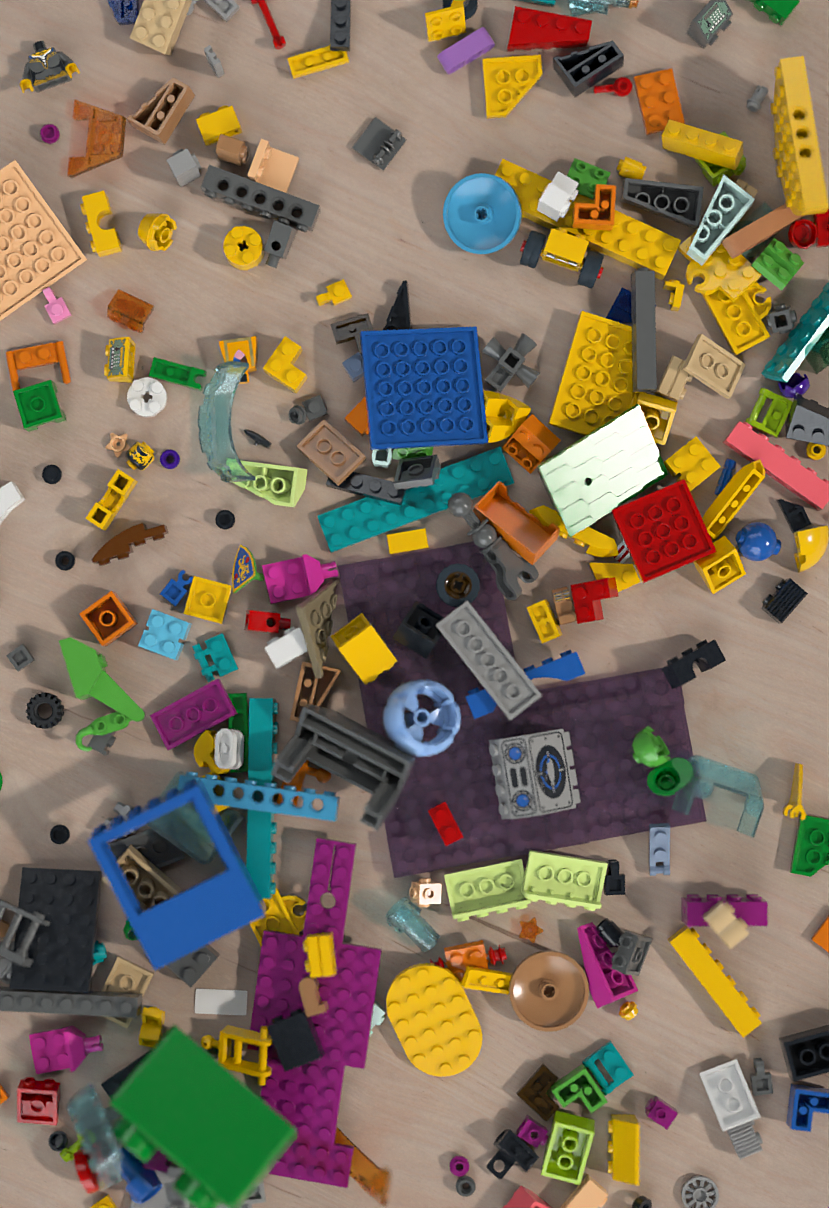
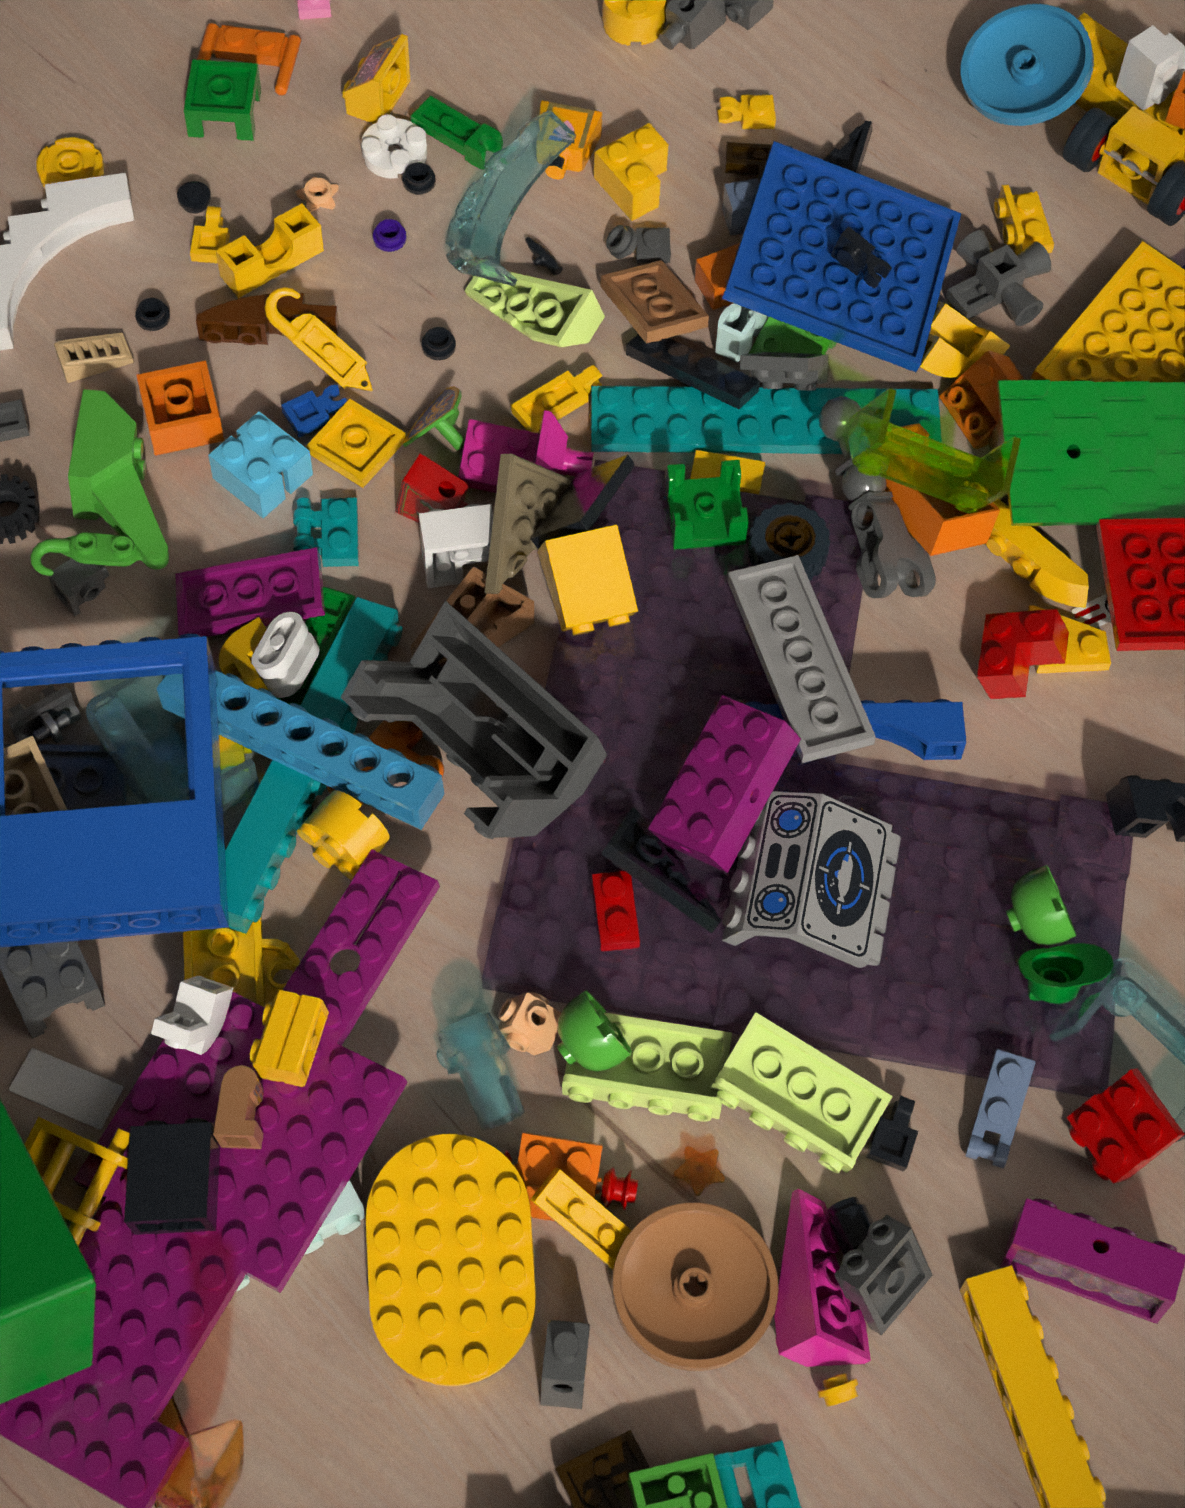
camera: 20 degrees right, 25 degrees down
(44, 608) = (79, 347): none -> tan slope
(74, 502) = (209, 237): none -> yellow plate
(129, 311) = (424, 29): clear orange bracket -> none
(139, 456) = (344, 214): head -> none
(163, 414) = (419, 178): none -> black plate
(164, 549) = (319, 343): none -> yellow plate
(271, 960) = (196, 1015): none -> white brick
(298, 832) = (343, 833): none -> yellow brick
(301, 532) = (559, 396): none -> yellow plate
(344, 606) = (583, 500): none -> black tile
(407, 580) = (706, 509): none -> green panel
(407, 728) = (620, 724): light blue wheel -> none
(419, 629) = (693, 586): black slope -> none
(433, 393) = (857, 256): none -> black plate
(450, 794) = (657, 870): none -> black wing
(459, 892) = (590, 1035): none -> bright green cylinder
(476, 747) = (725, 783): none -> magenta brick
(503, 1044) = (564, 1364): none -> dark grey torso
(512, 314) = (1022, 220): none -> yellow bracket
(516, 520) = (926, 463): none -> clear neon green windscreen
(544, 621) = (918, 660): yellow hinge -> none
(563, 606) = (960, 655): medium nougat leg -> none
(719, 839) = (1124, 1127): none -> red plate
(725, 924) = (1091, 1257): tan brick -> none

